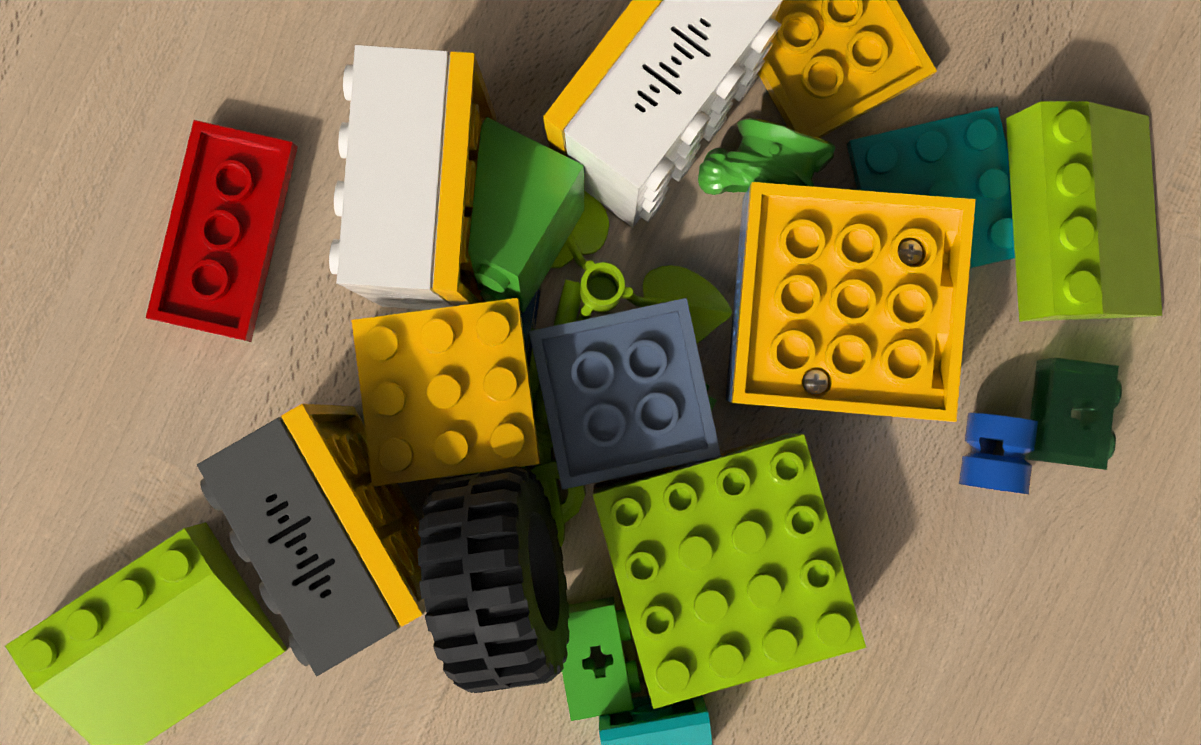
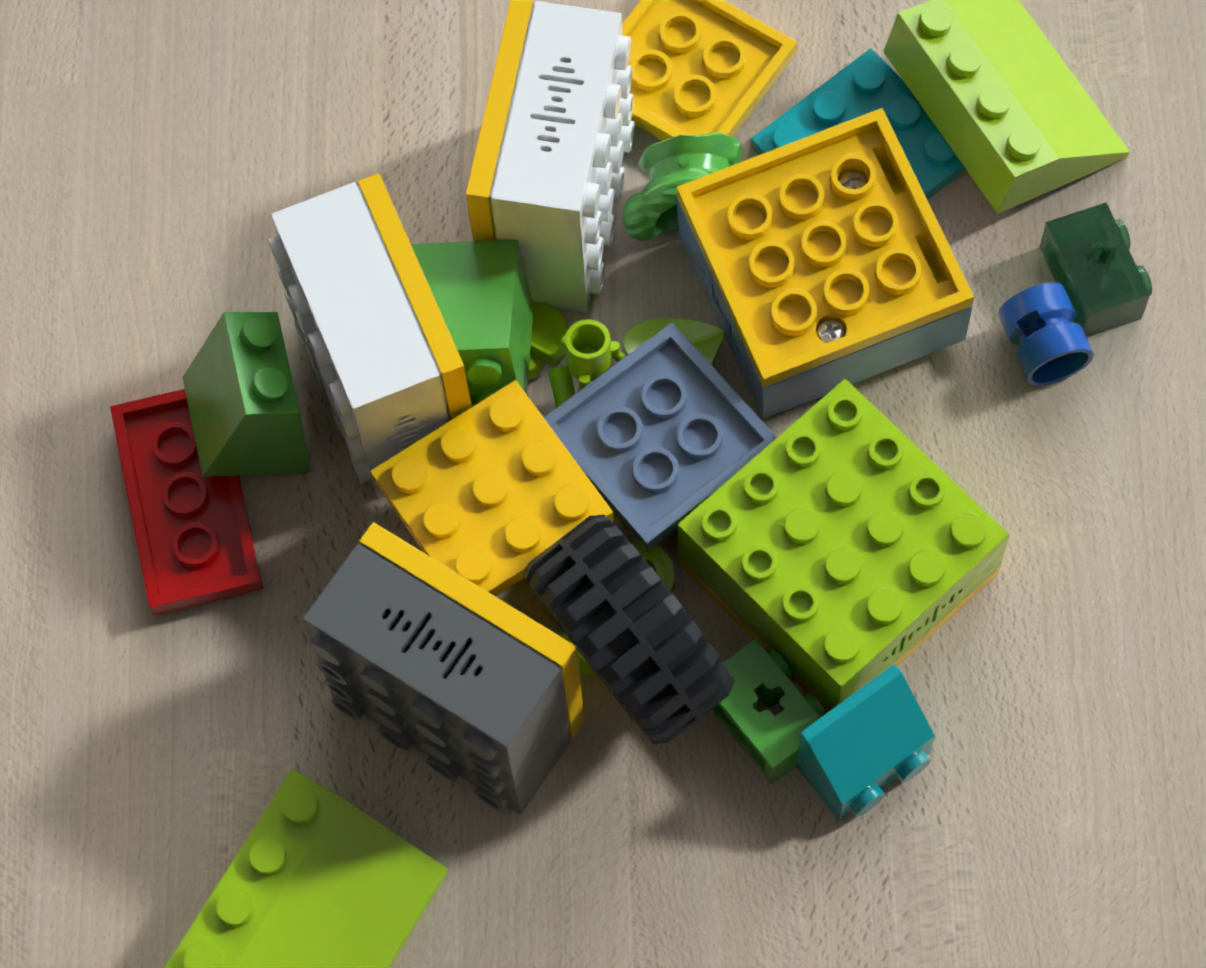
camera: 25 degrees left, 20 degrees down
(294, 183) = (245, 400): none -> bright green slope

